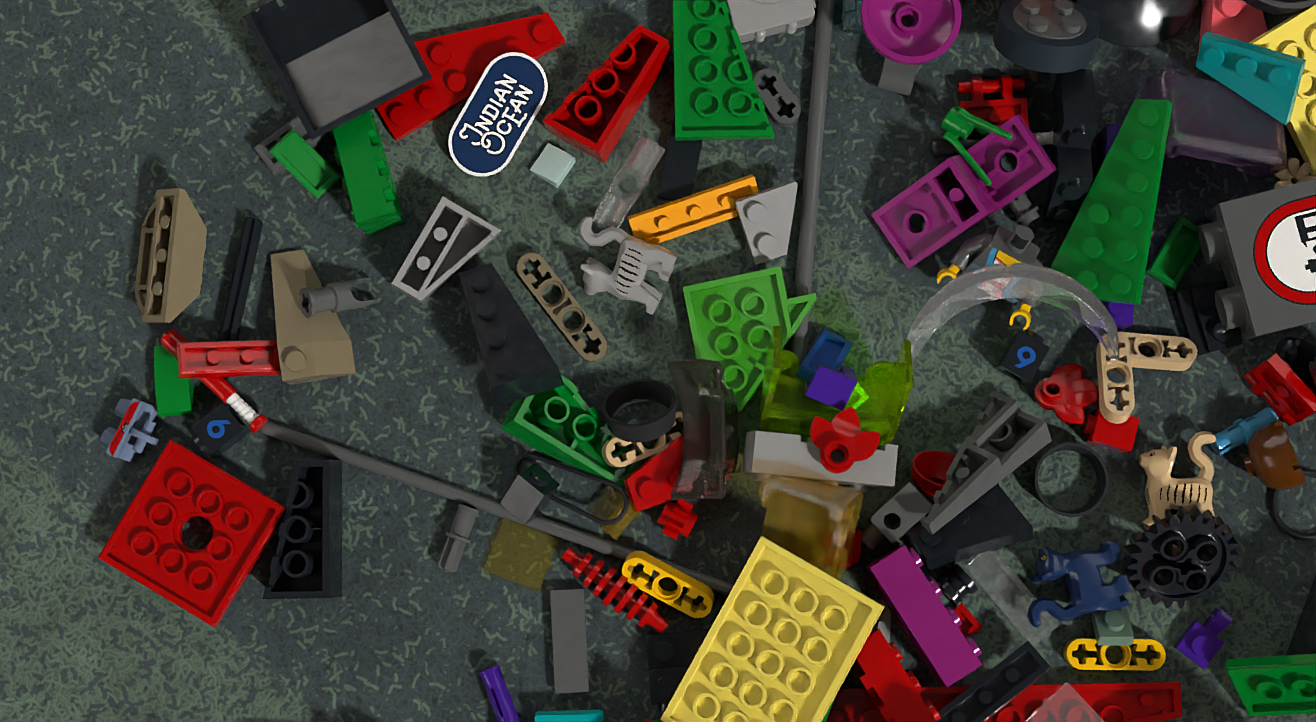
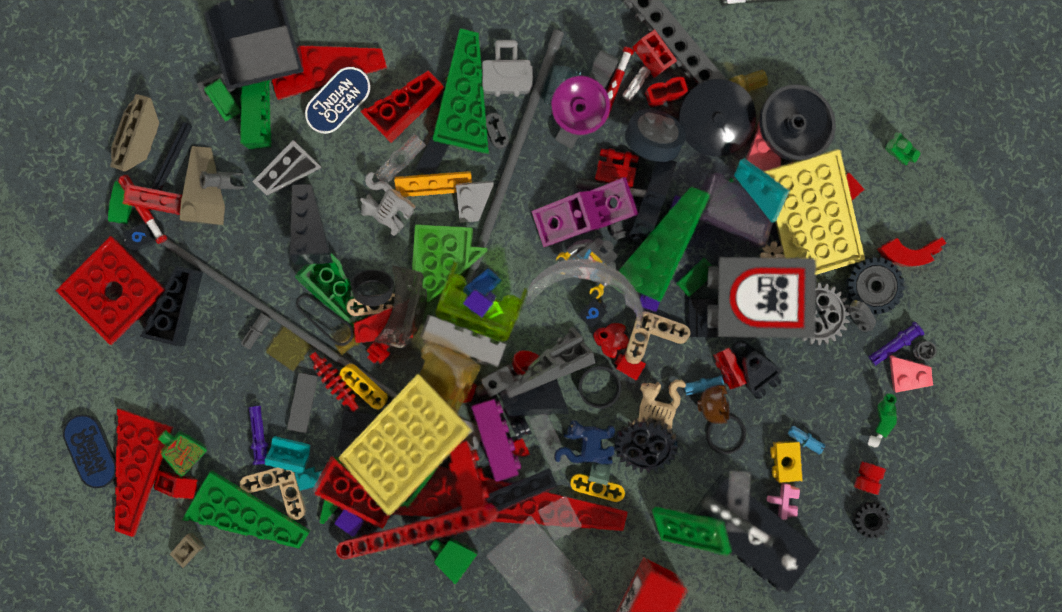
camera: 10 degrees right, 5 degrees up
(133, 430) = (92, 225): sand blue hips -> none
(529, 493) = (300, 317): black brick -> none
(553, 165) = (362, 136): light aqua slope -> none
(562, 307) = (348, 217): dark tan beam -> none
(845, 437) = (477, 331): red plate -> none
(961, 124) = (593, 174): green plant -> none
(1201, 641) = (646, 493): dark purple plate -> none

